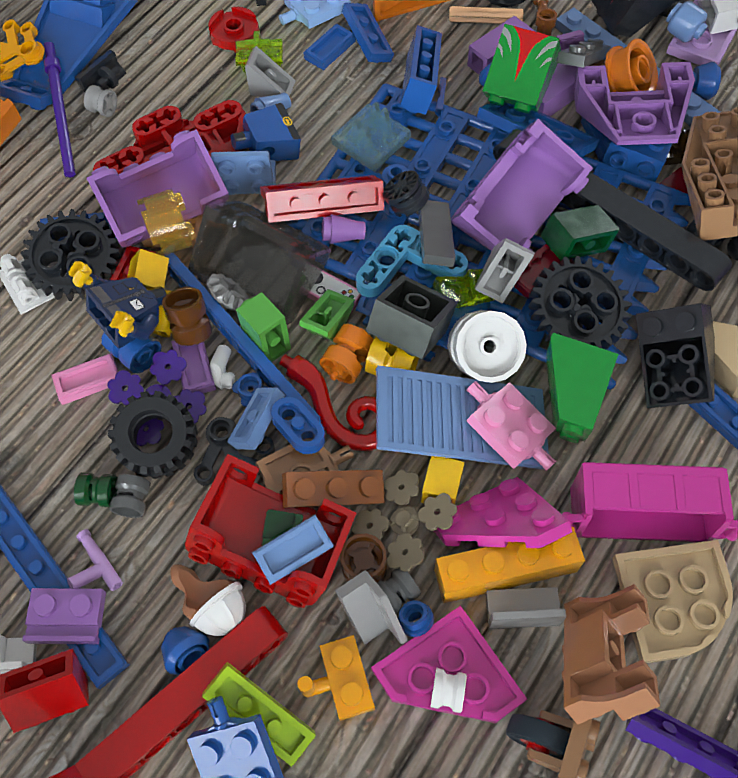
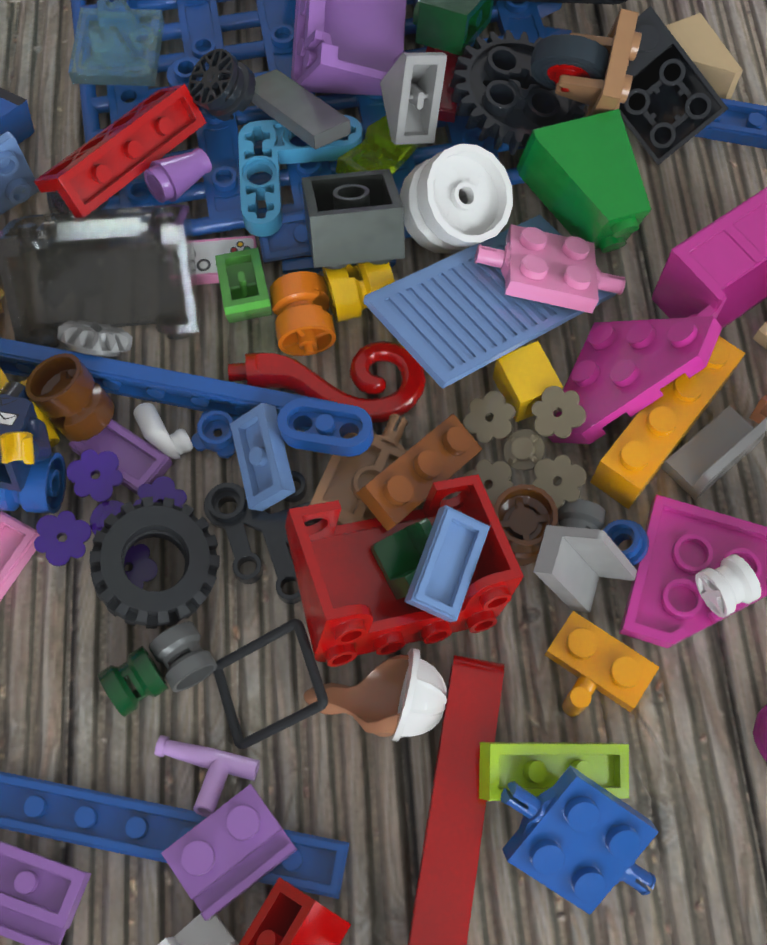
camera: 40 degrees left, 5 degrees up
(150, 571) = (298, 626): none -> black piece
(182, 648) = (405, 773): blue cone -> none
(264, 326) = (180, 340): bright green brick -> none
(624, 317) = (590, 66): none -> plate

